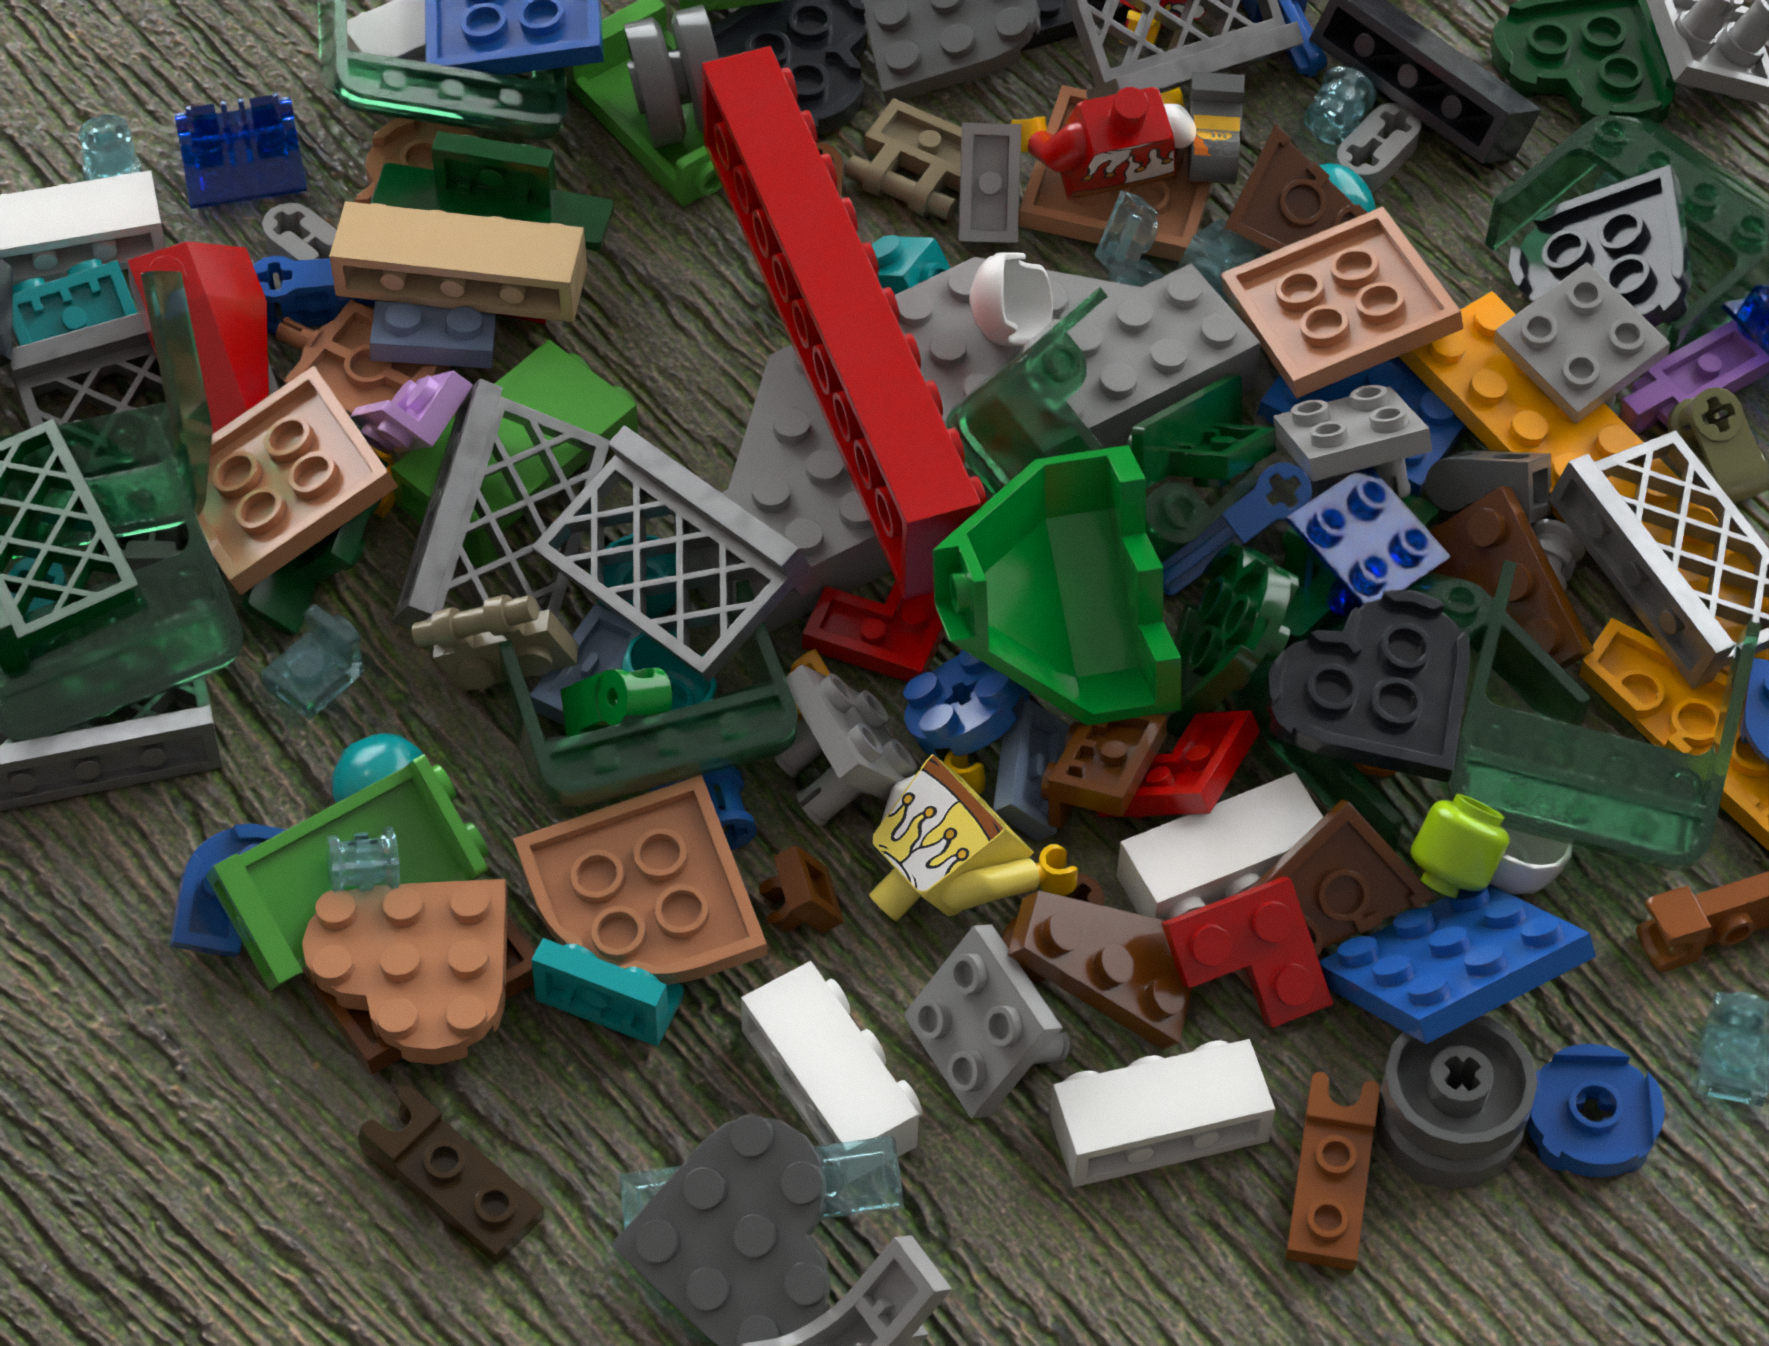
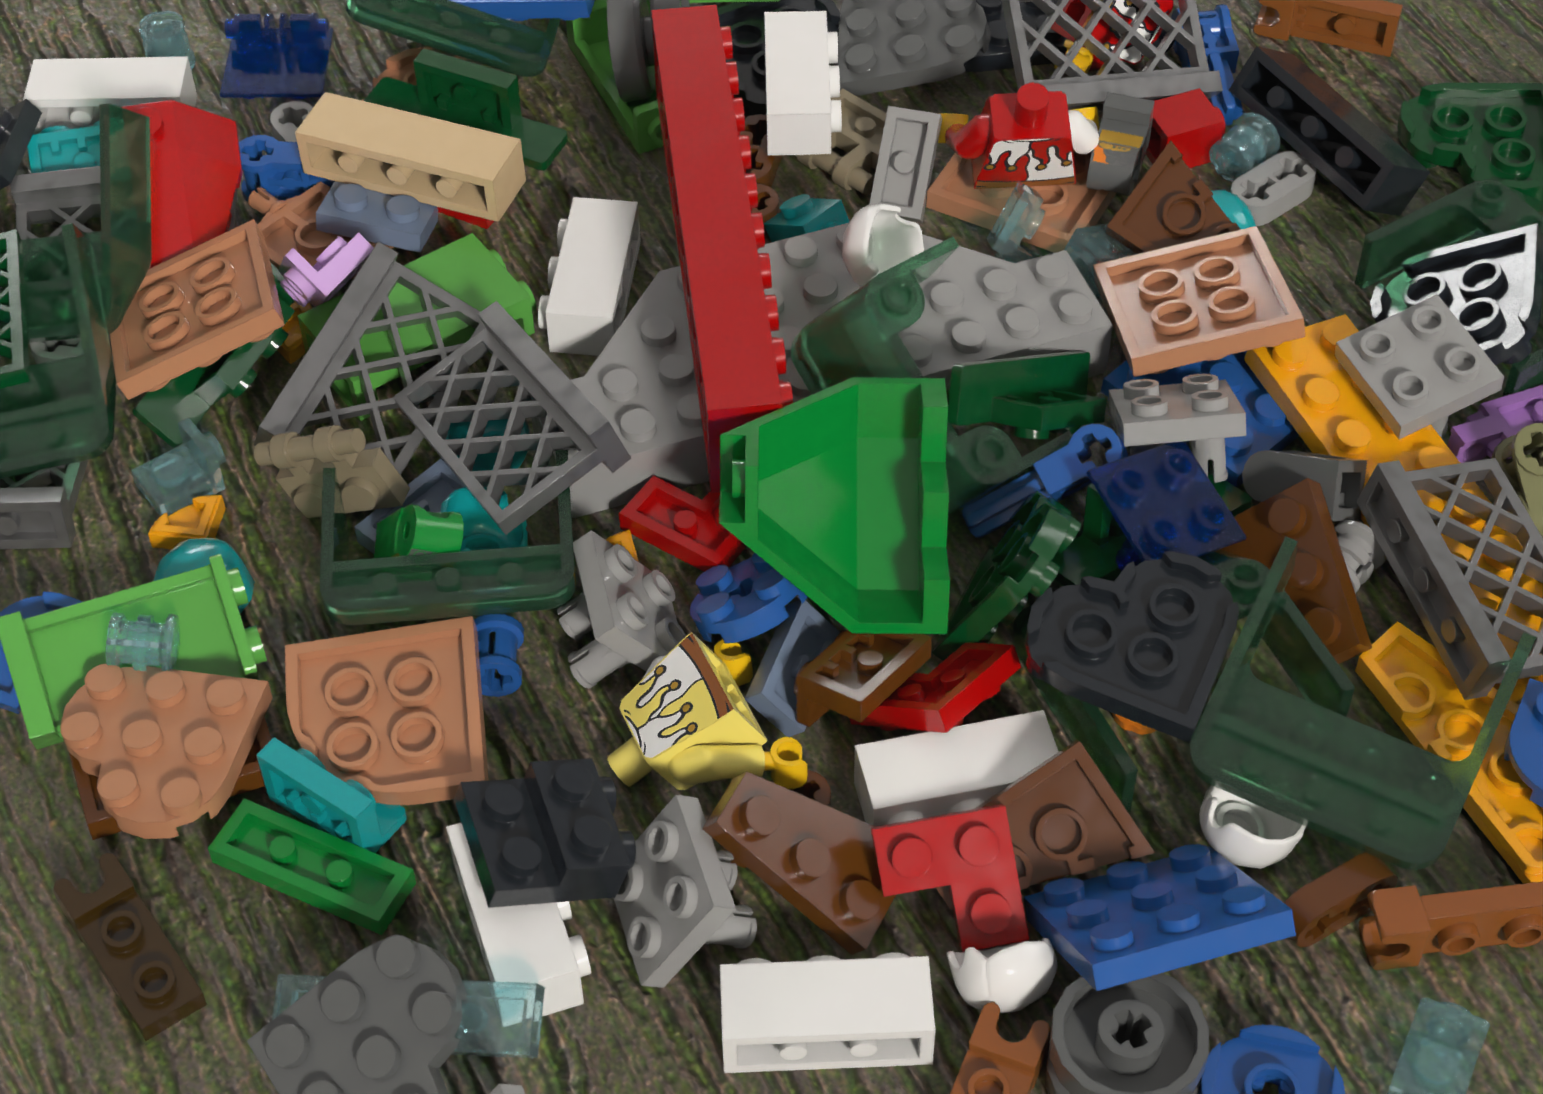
camera: 15 degrees right, 5 degrees down
(342, 720) = (190, 522): none -> light orange tile
(608, 1060) = (312, 866): none -> green plate
(685, 366) = (591, 275): none -> white brick
(806, 891) = (543, 735): reddish brown tile -> none
(849, 987) = (546, 835): none -> black plate
(852, 102) = (801, 83): none -> white brick
(1274, 93) = (1189, 123): none -> red brick
(1320, 1041) = (1005, 974): none -> white hair
(1460, 845) = (1186, 804): lime head -> none
(1618, 905) = (1337, 898): none -> reddish brown beam

